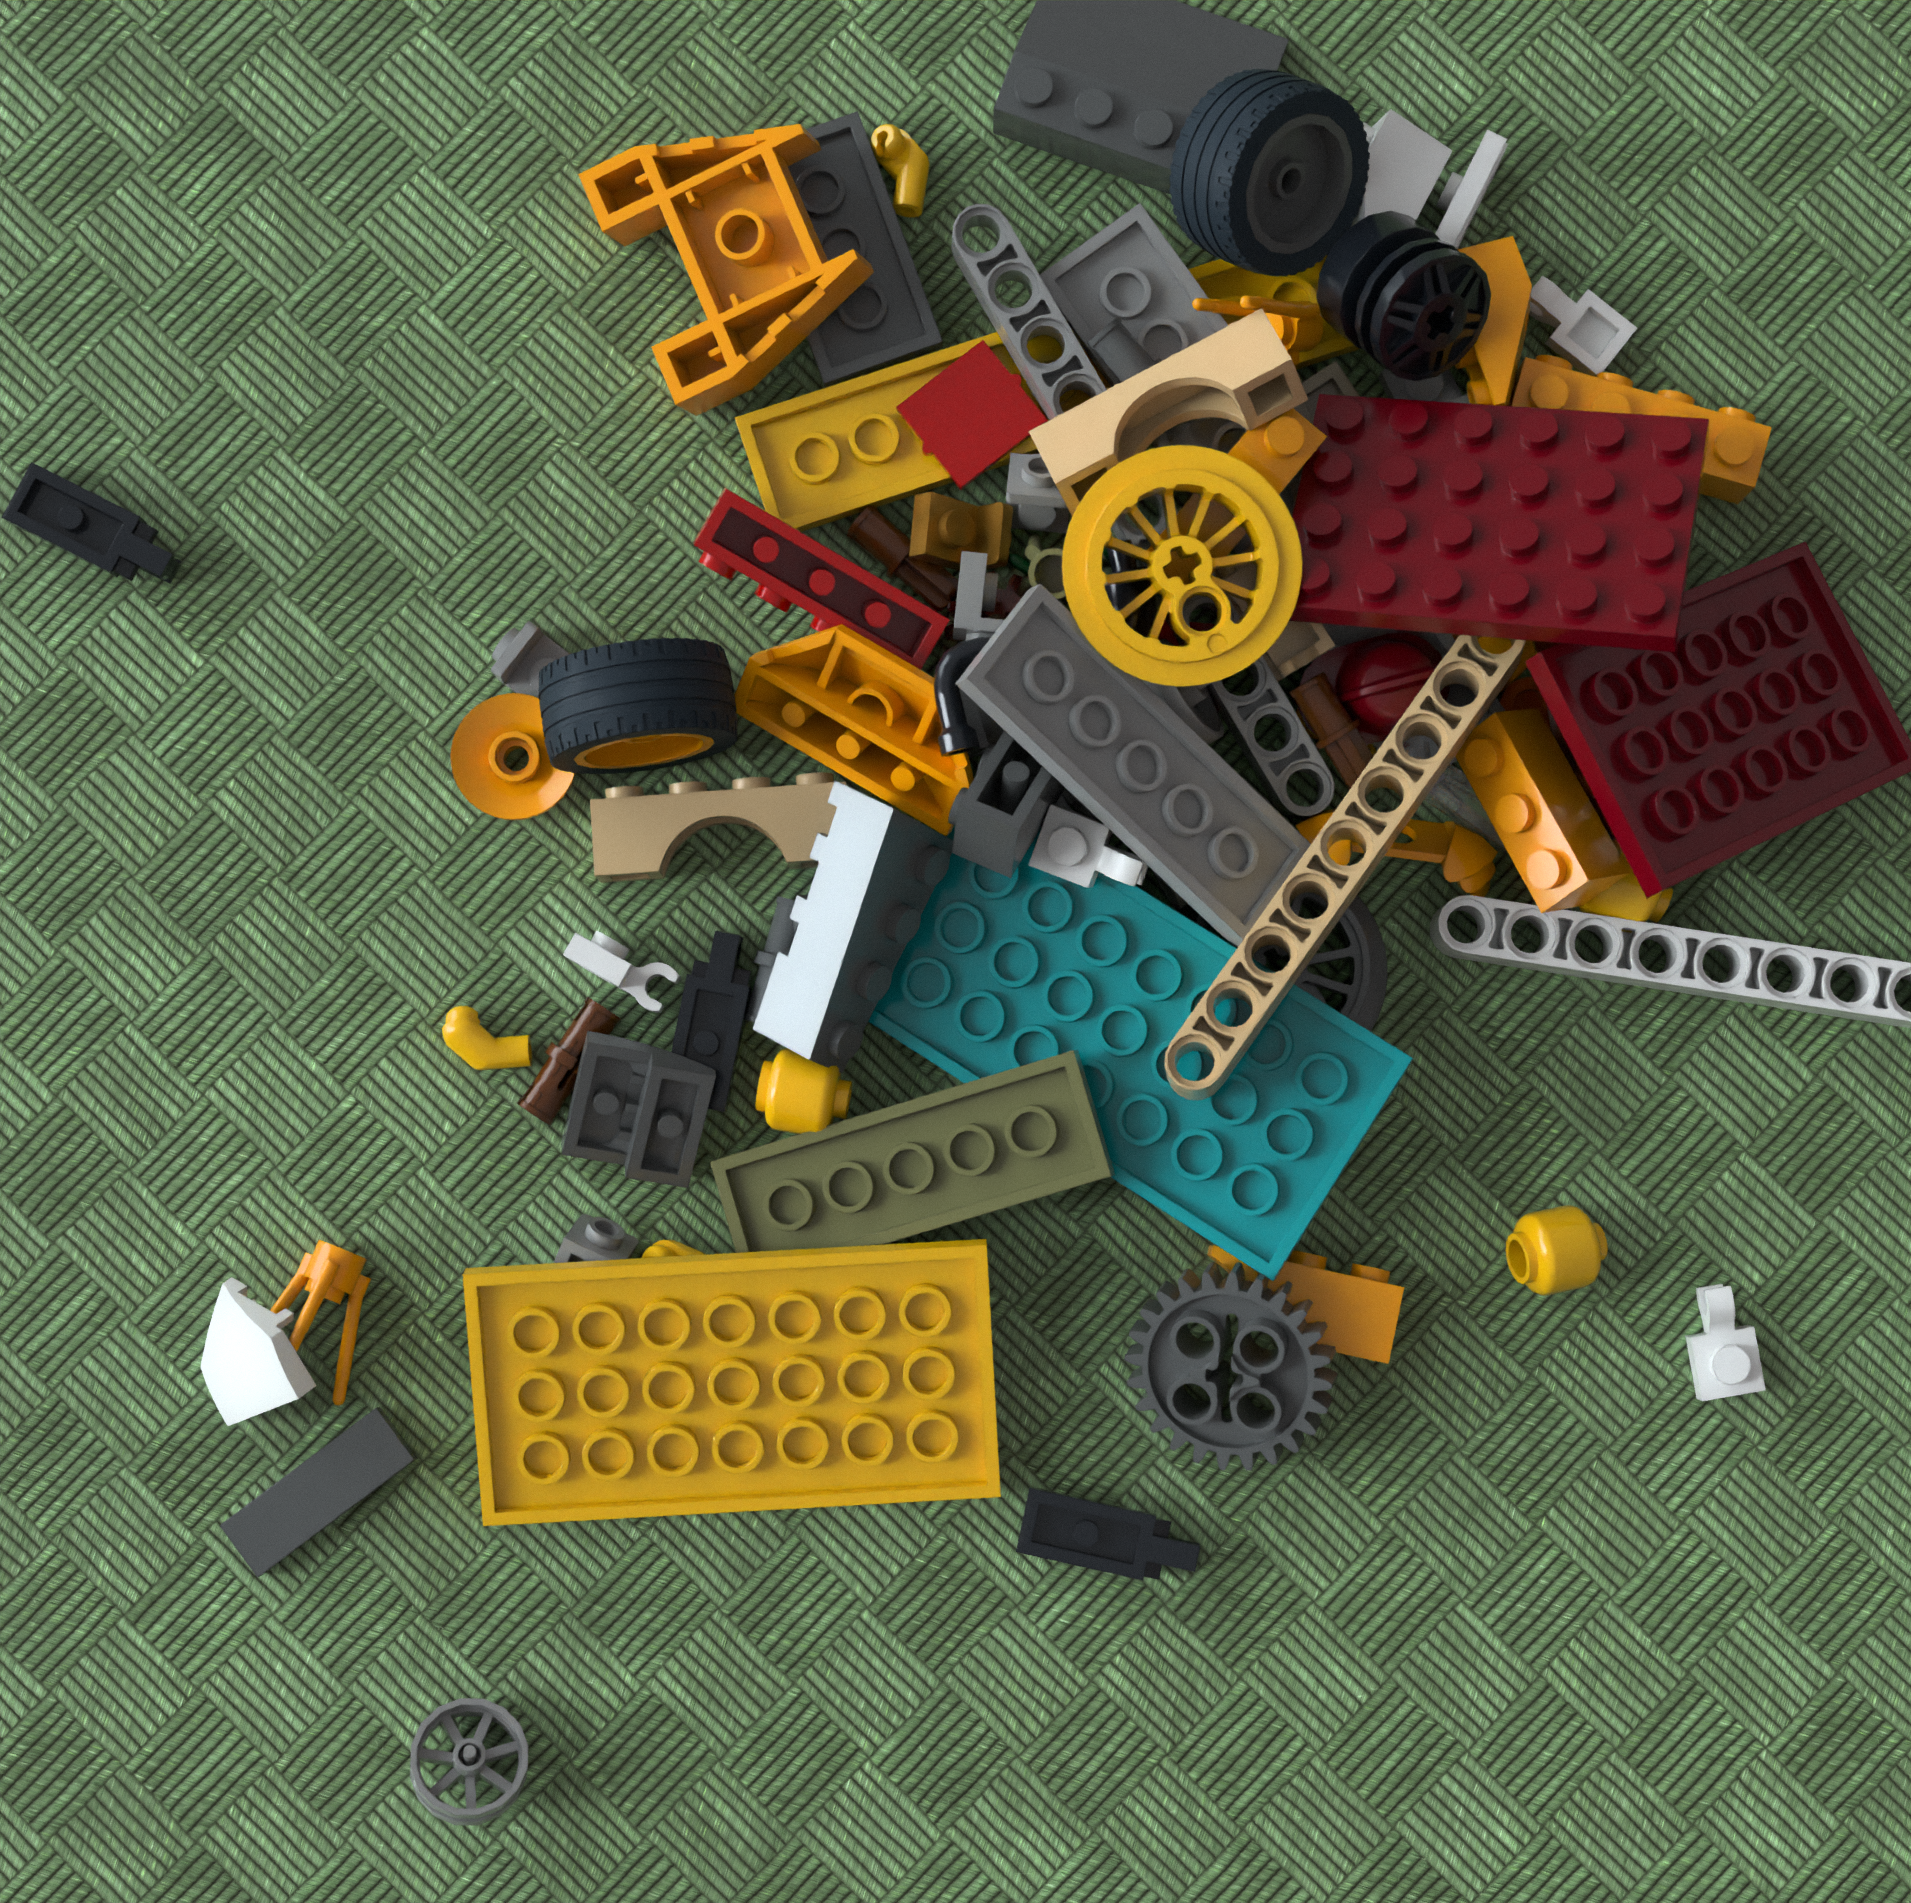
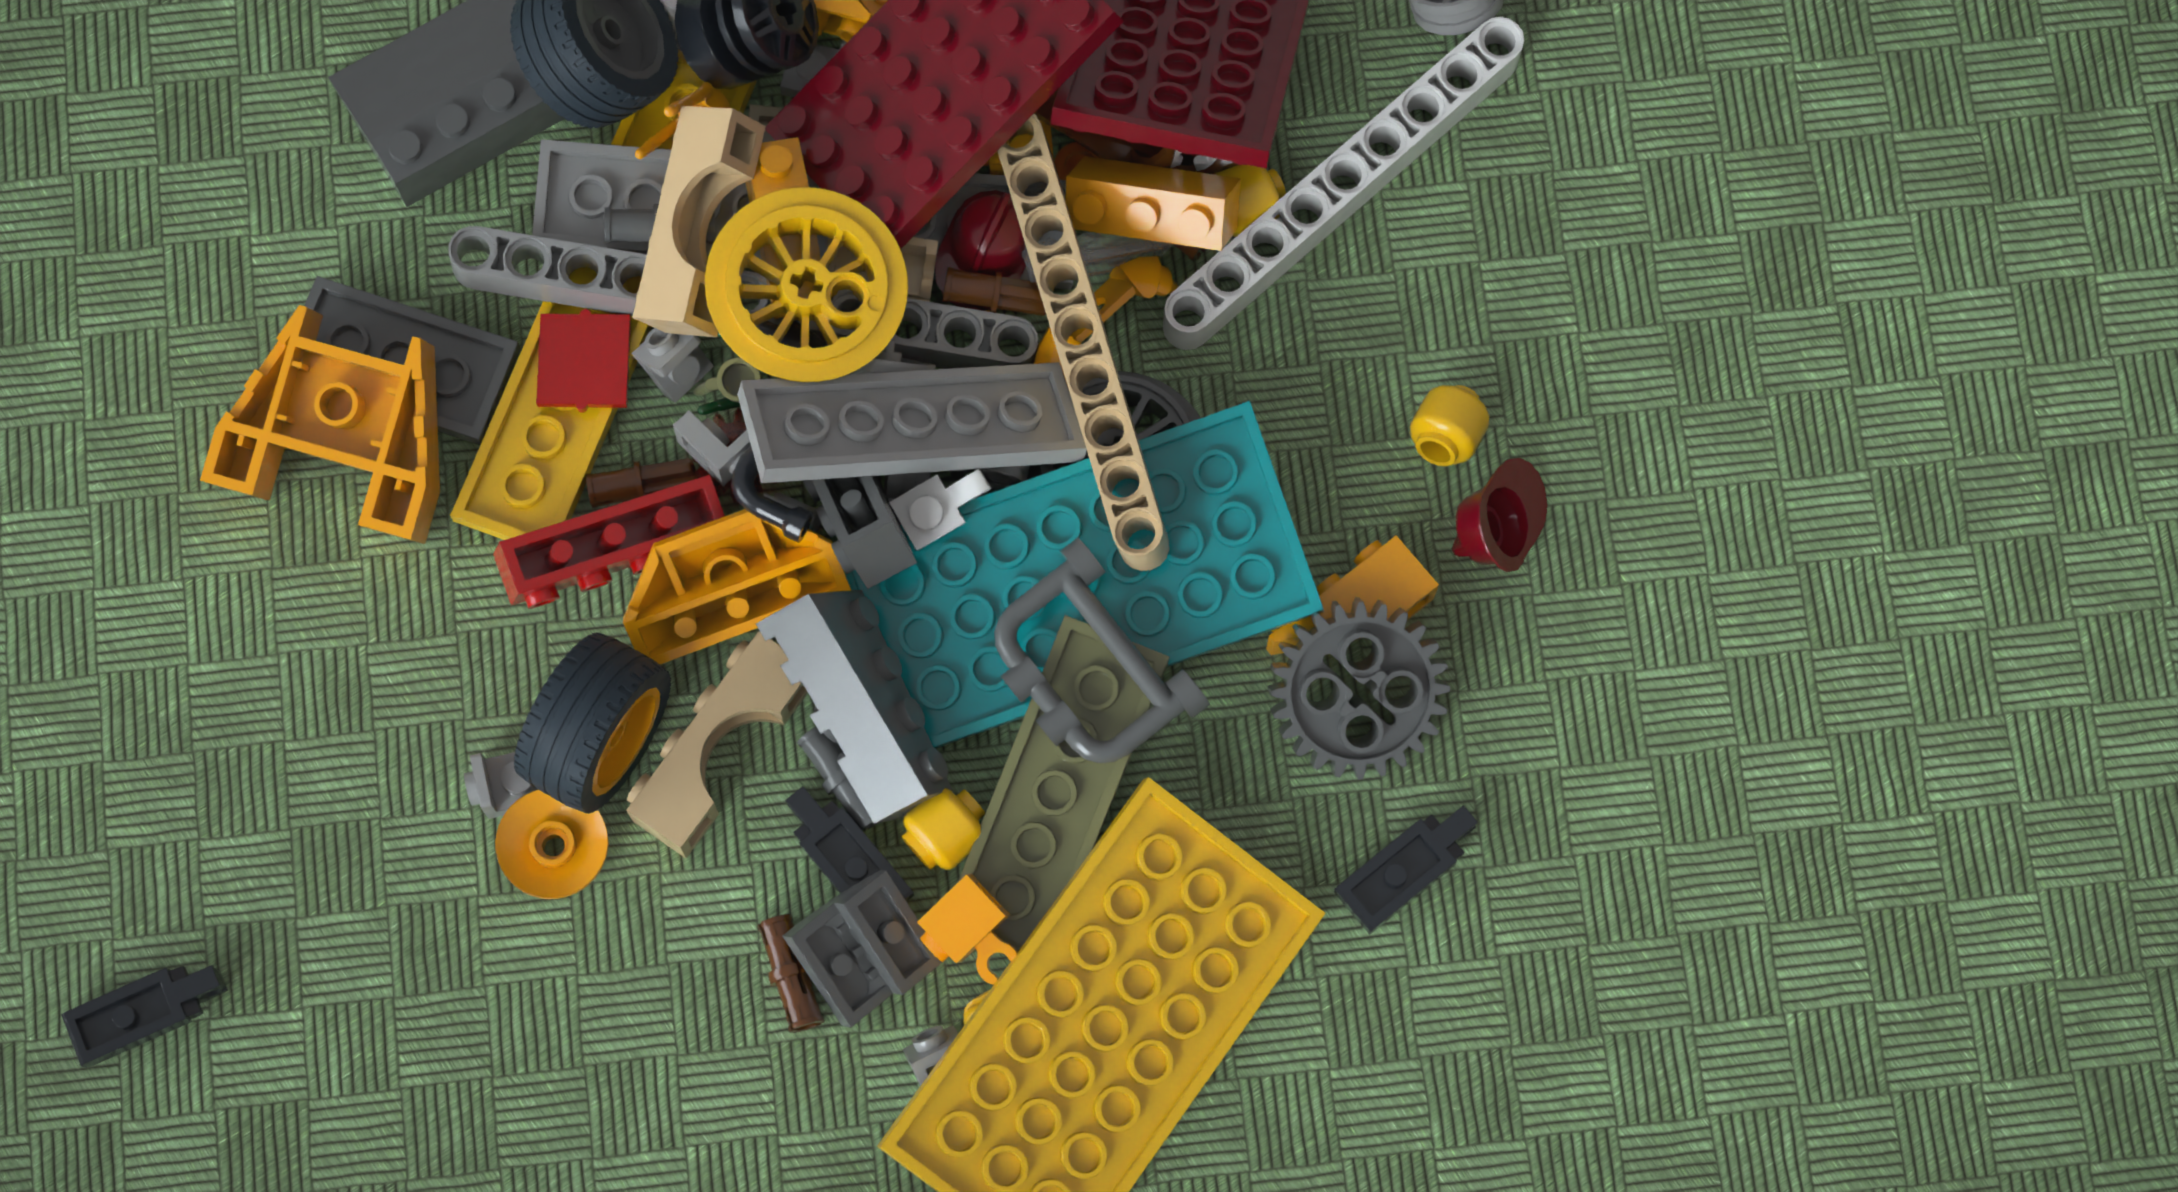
camera: 55 degrees left, 10 degrees down
(478, 1047) = (730, 1027): yellow arm -> none
(606, 960) = (744, 892): white plate -> none
(729, 1186) = (967, 922): none -> light orange brick
(905, 164) = (379, 275): yellow arm -> none
(948, 526) = (649, 434): pearl gold bracket -> none
(972, 1122) = (1058, 720): none -> dark grey bar
(1503, 1371) = (1503, 517): none -> dark red piece
(1723, 1356) = (1604, 377): white plate -> none

